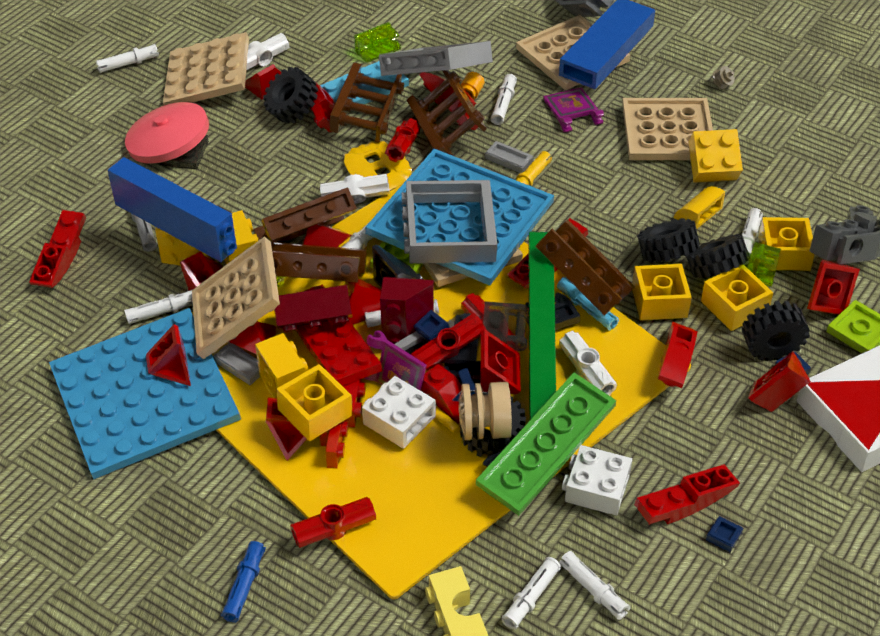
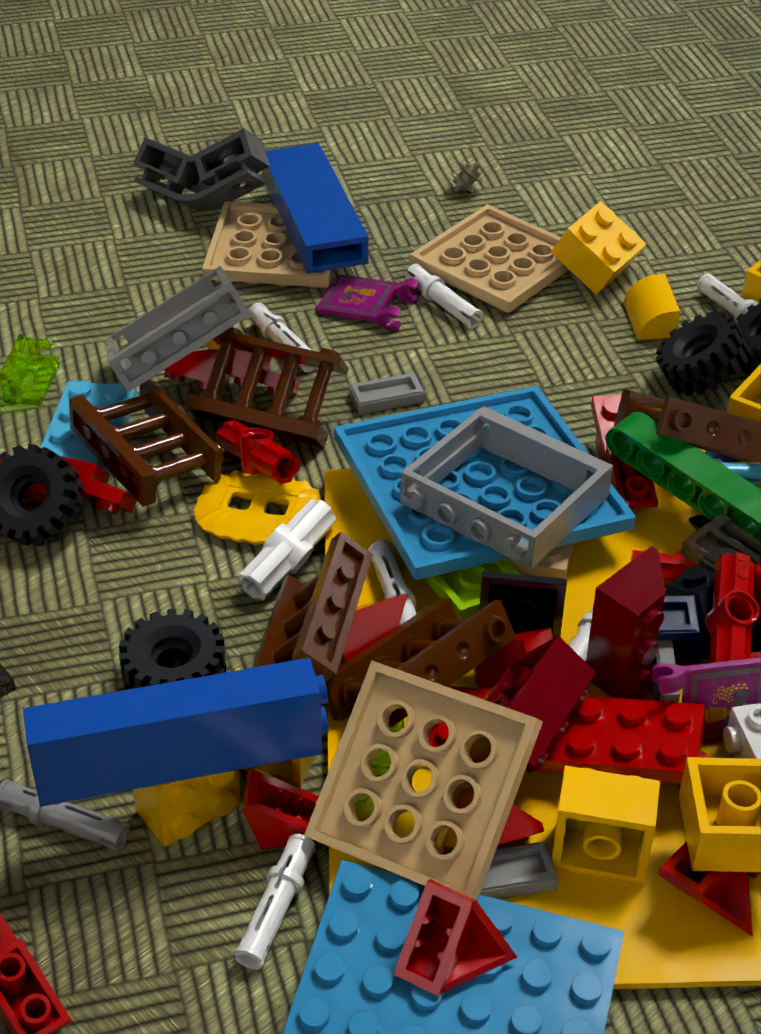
camera: 50 degrees left, 5 degrees down
(253, 187) = (170, 639): none -> black tyre
(534, 169) = (432, 373): yellow pin -> none
(609, 124) = (435, 289): none -> white pin

